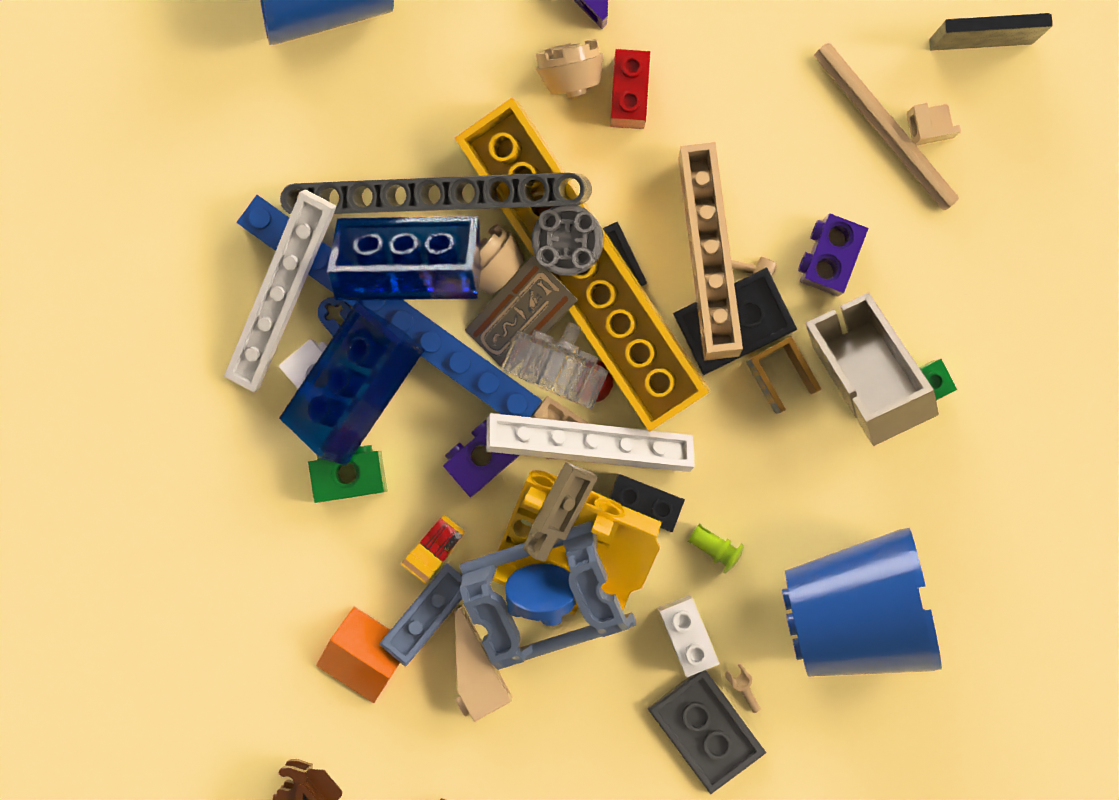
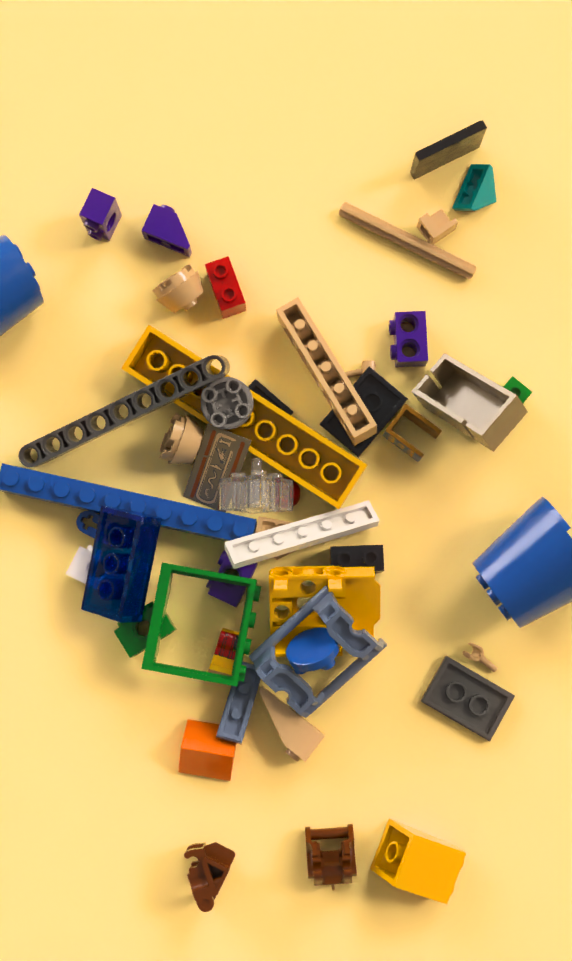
camera: 25 degrees left, 5 degrees down
(280, 290) = (45, 521): white plate -> none
(367, 472) = (158, 617): none -> green window
(405, 258) = (122, 461): clear blue slope -> none
(559, 510) = (300, 586): dark tan hinge -> none
(688, 635) = (426, 637): white brick -> none
(713, 545) = (418, 569): lime pin -> none
(1004, 98) = (477, 189): none -> teal slope

